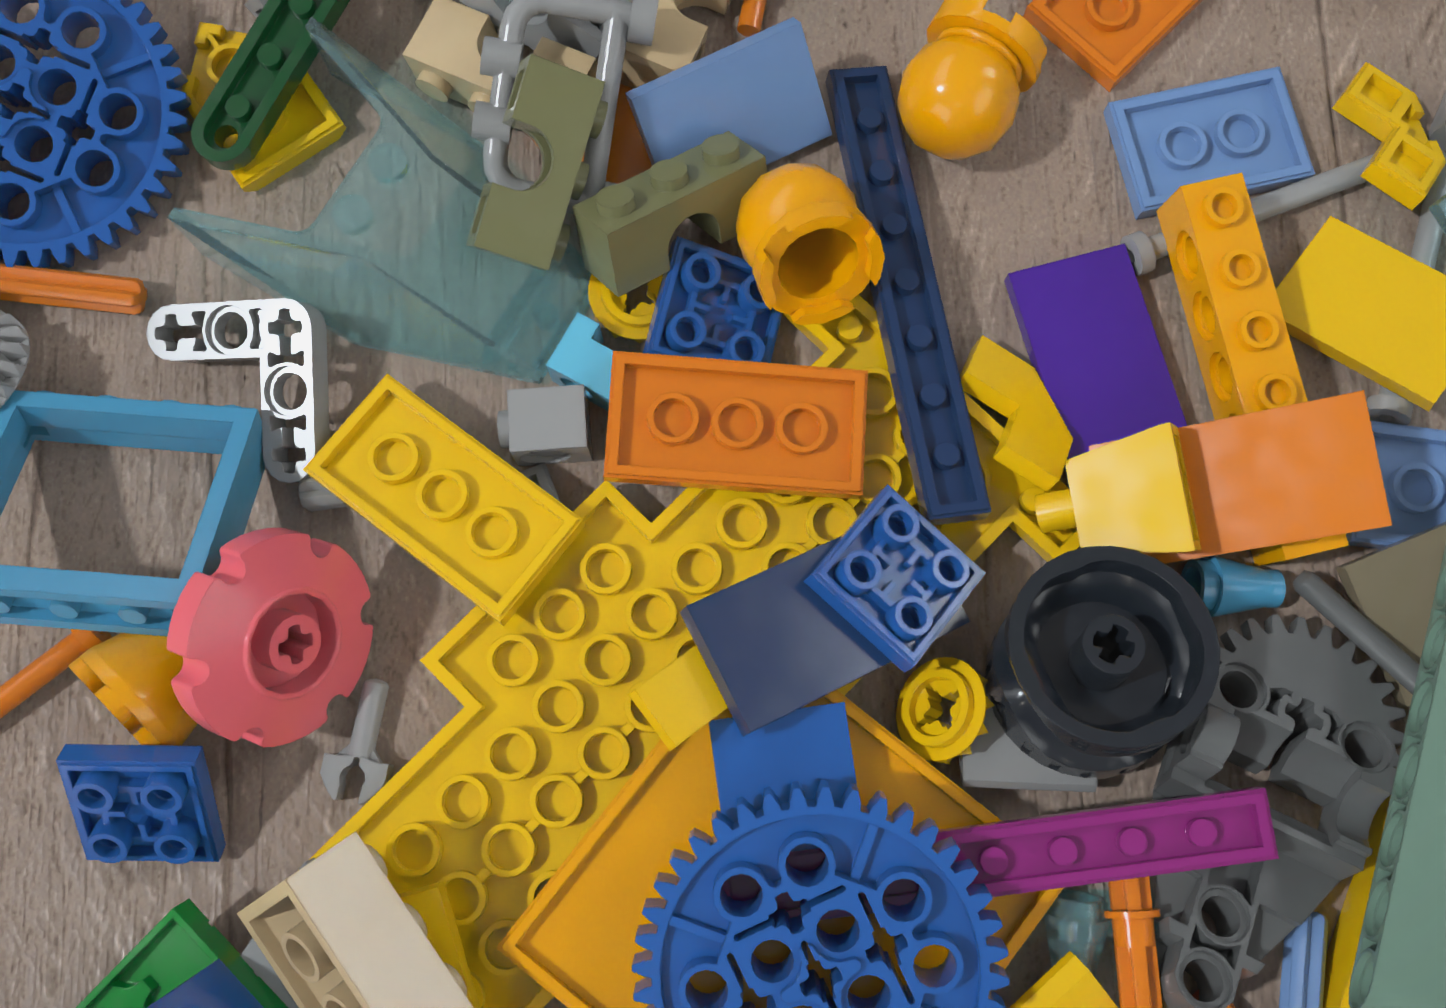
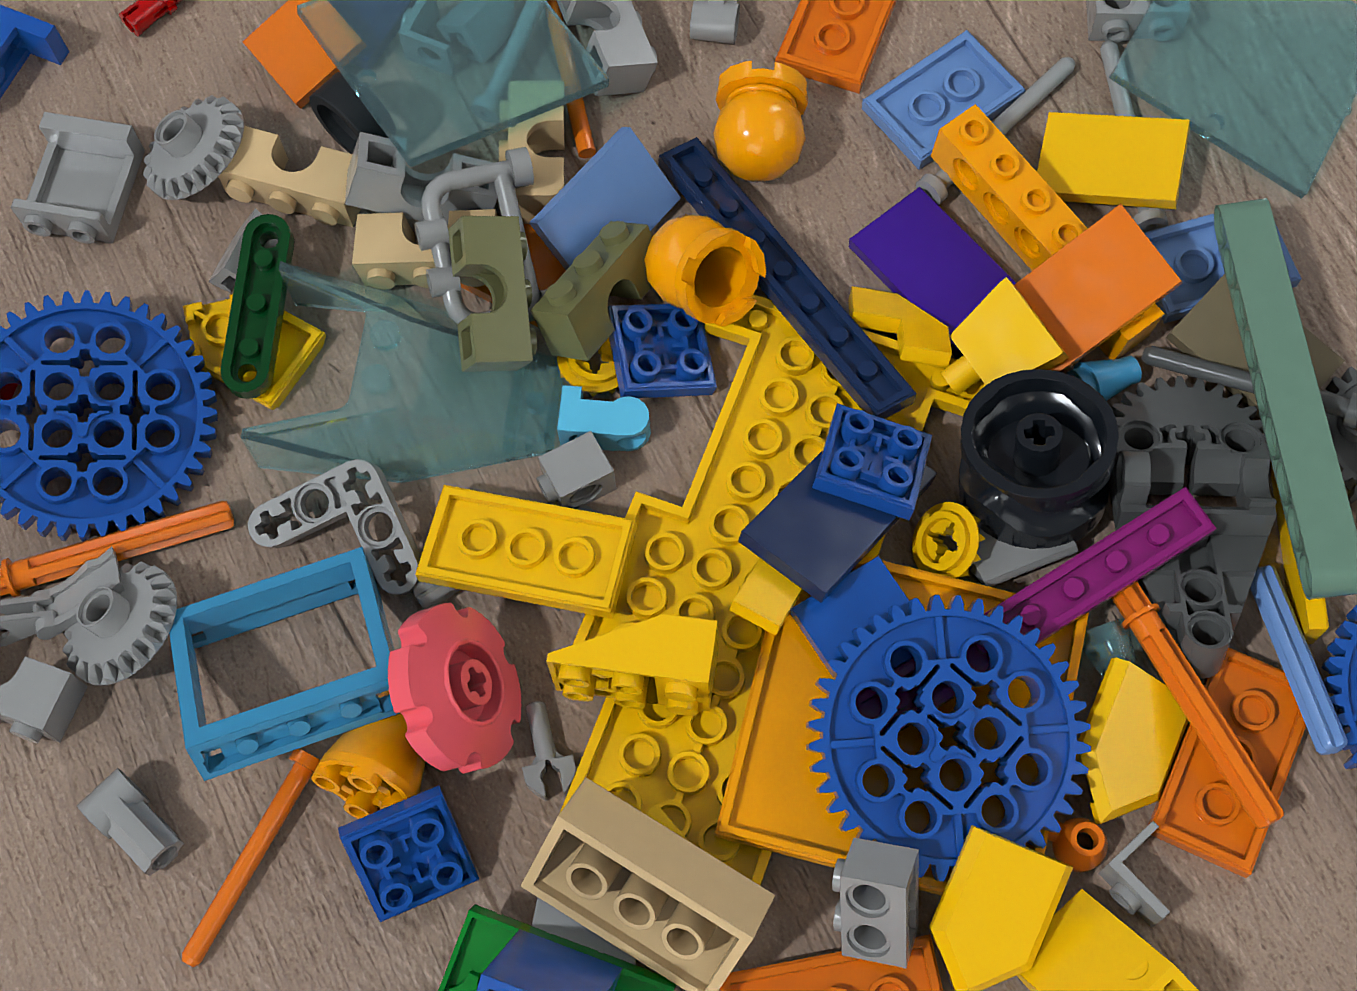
camera: 20 degrees left, 10 degrees down
(514, 713) = (651, 661): none -> yellow slope
(736, 425) = (711, 413): orange tile -> none
(1405, 160) = (1080, 56): yellow tile -> none

